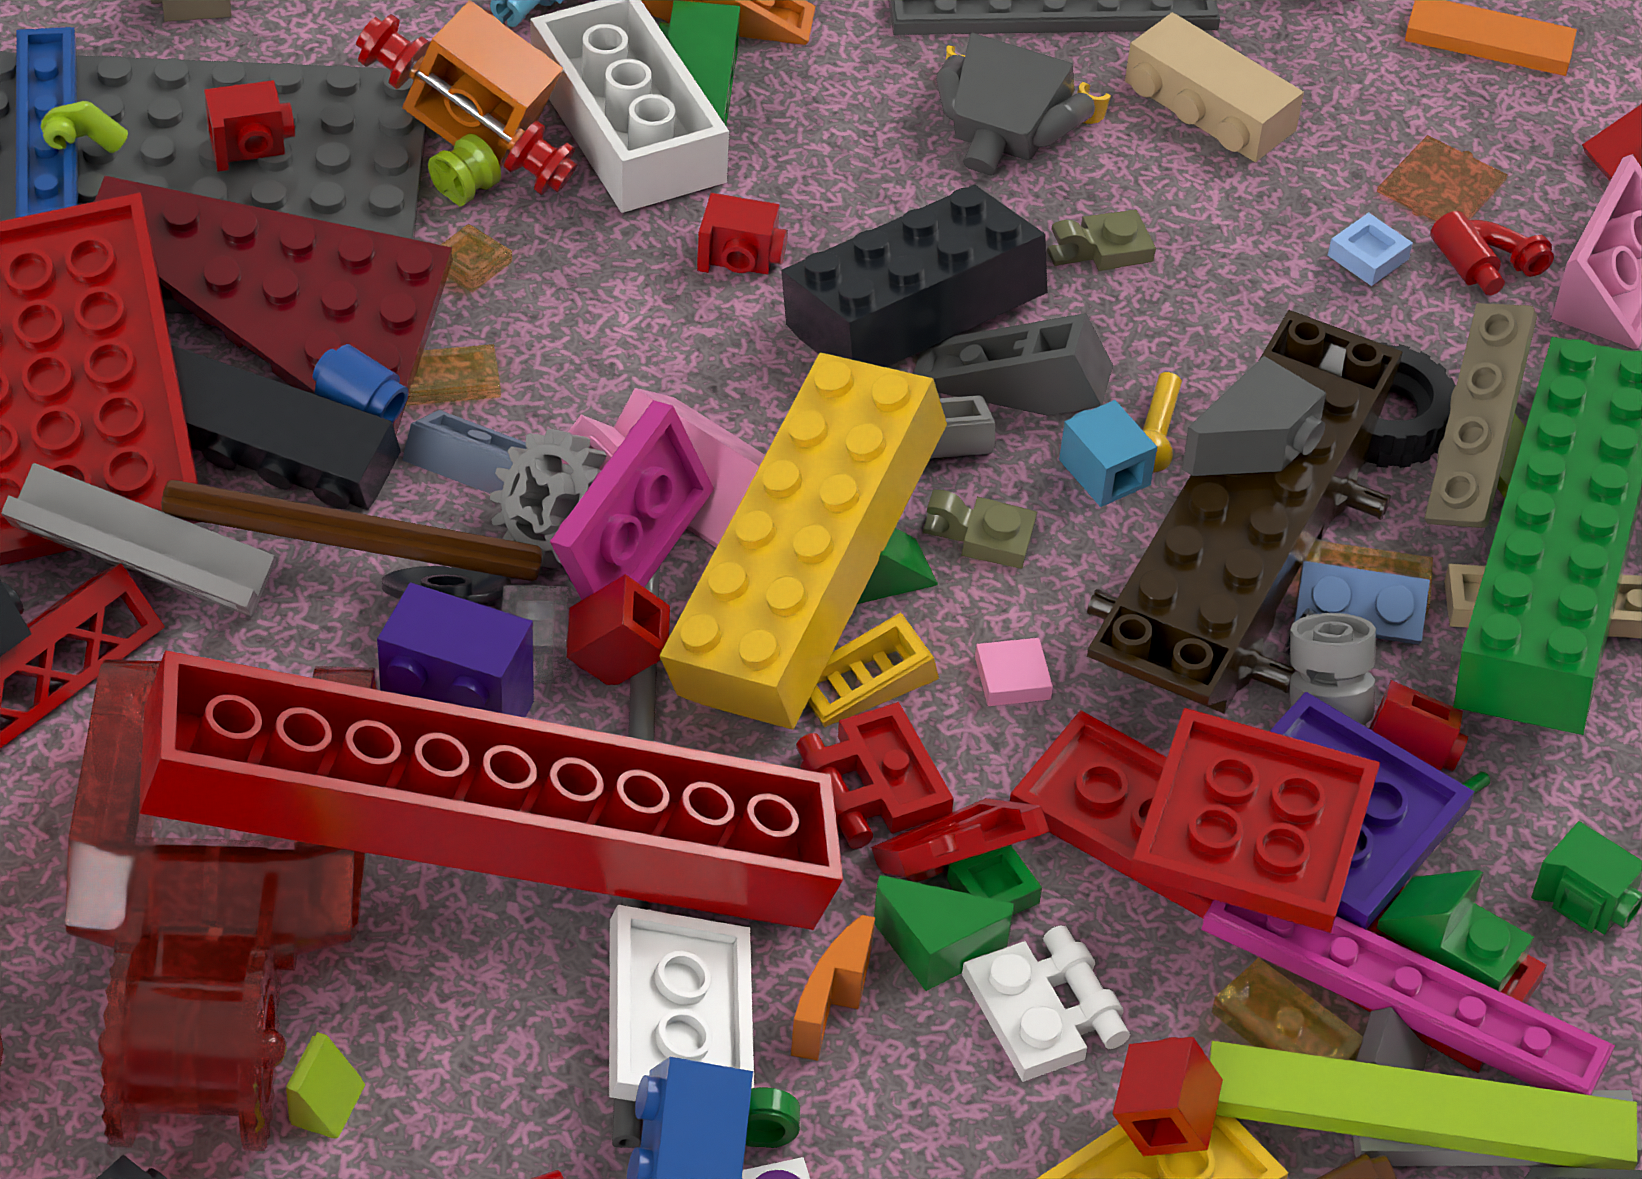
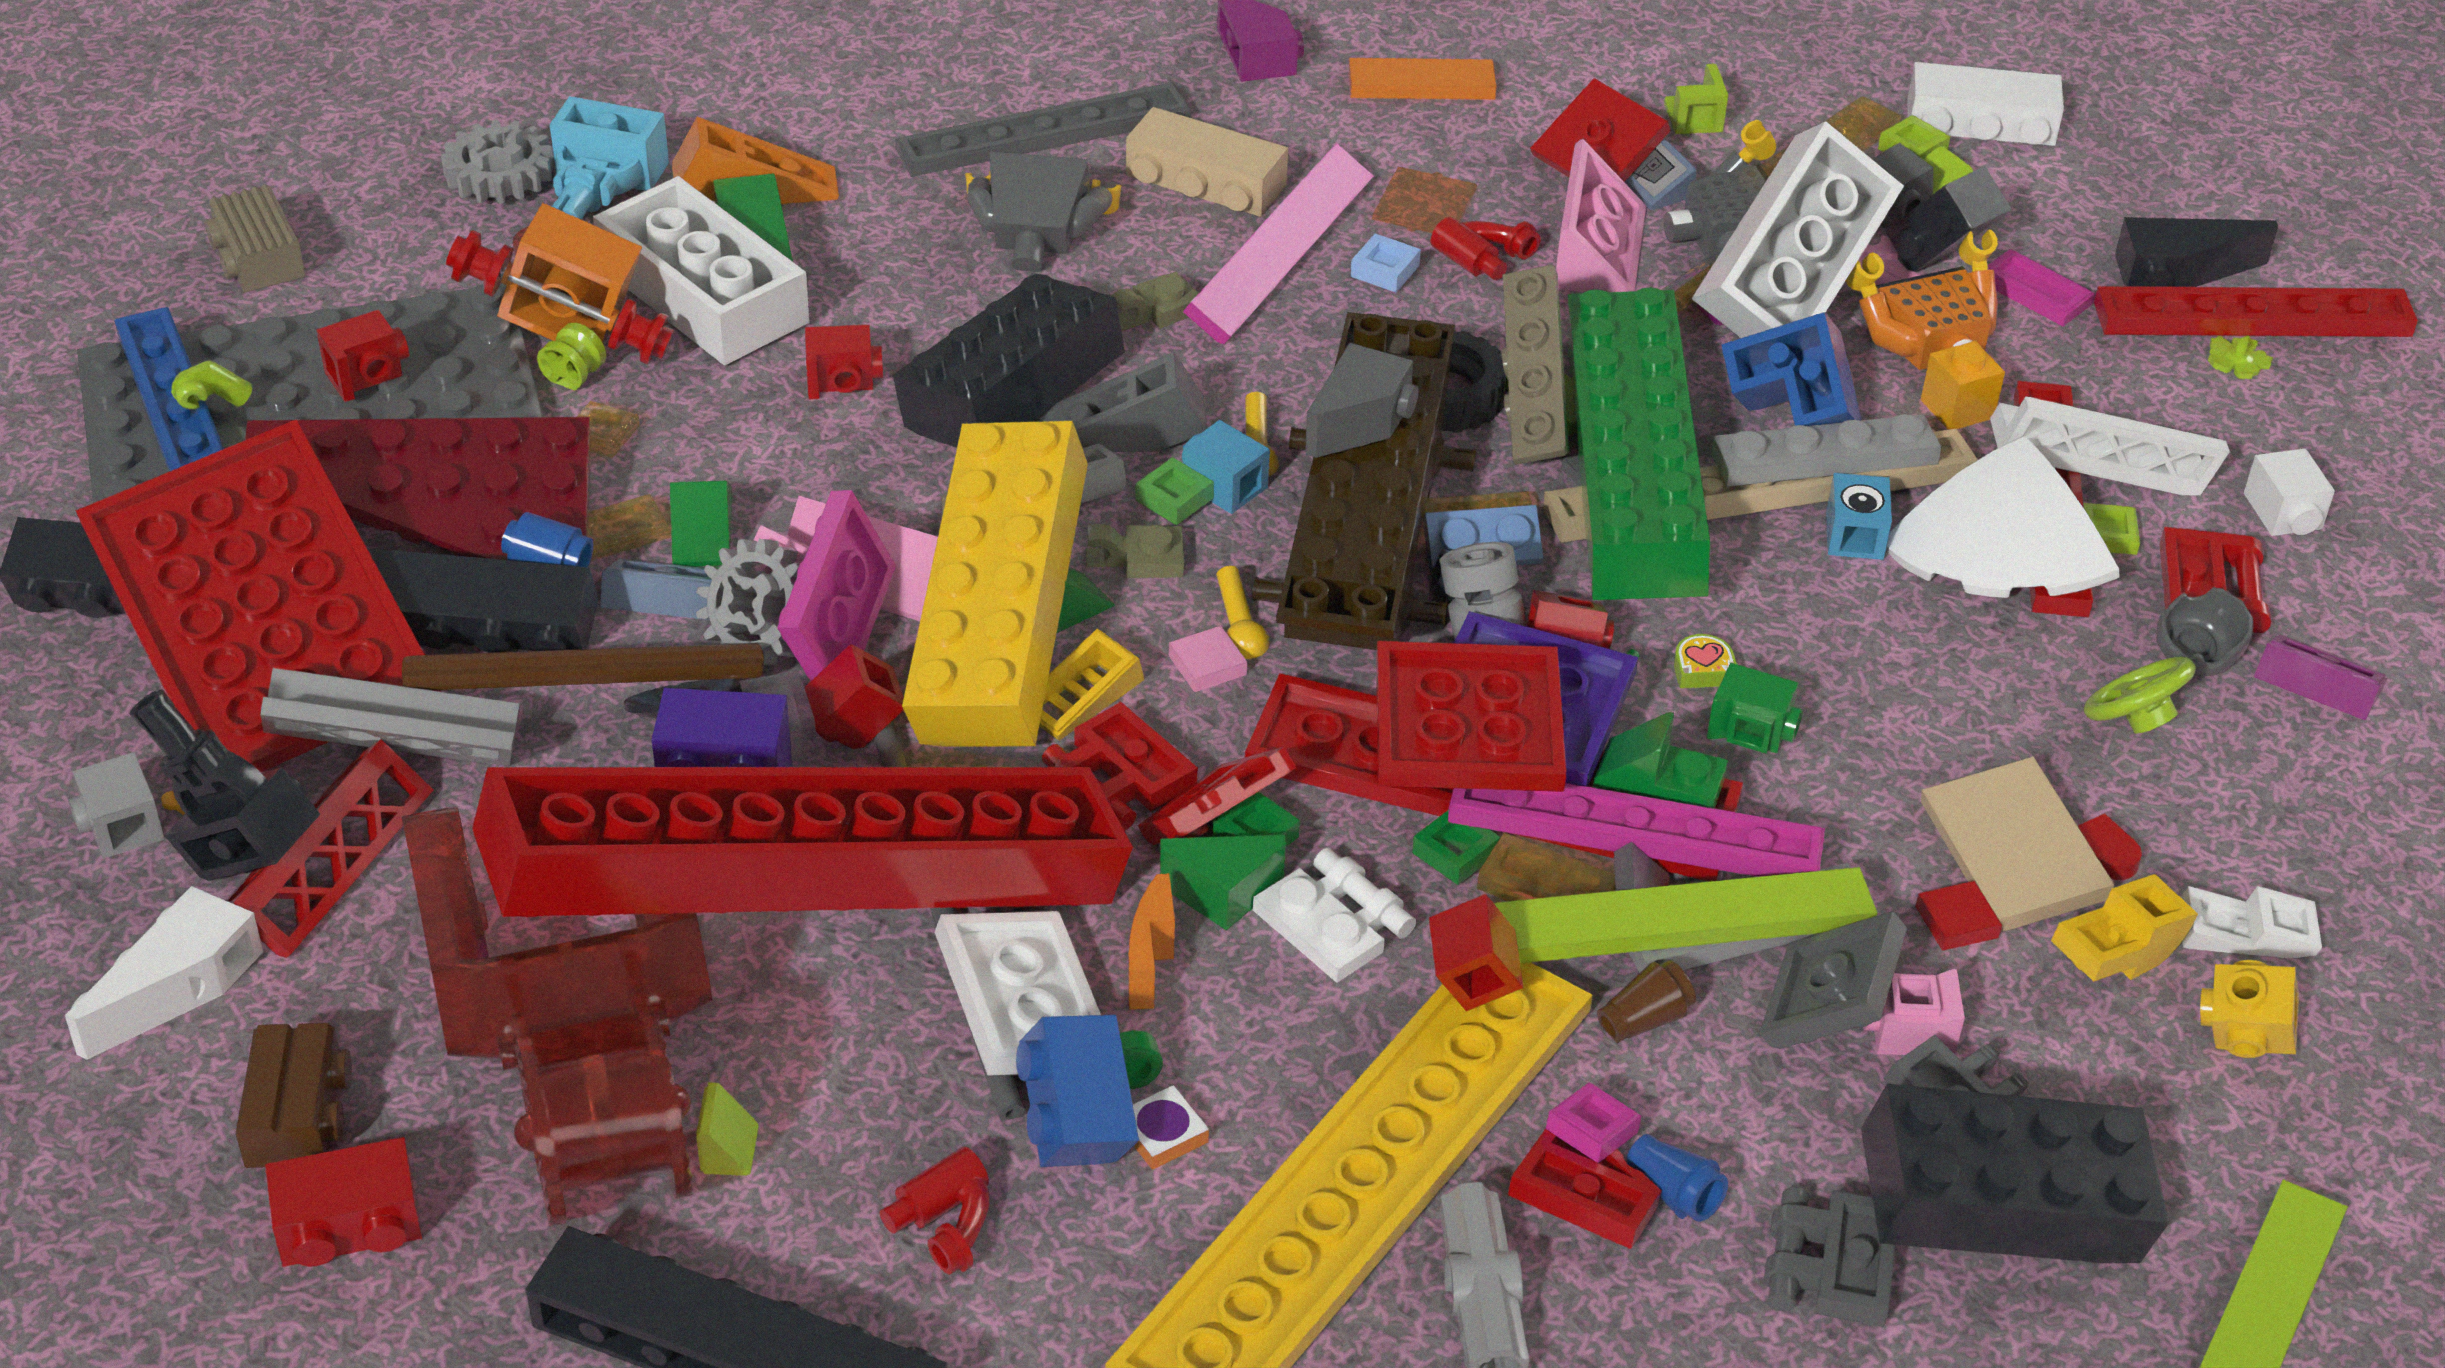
camera: 15 degrees left, 5 degrees down
(533, 388) = (700, 521): none -> green slope
(1044, 468) = (1174, 491): none -> bright green plate
(1064, 653) = (1246, 634): none -> yellow bar
(1200, 960) = (1454, 848): none -> green plate
(1259, 201) = (1278, 244): none -> tile
(1557, 804) = (1702, 661): none -> tile

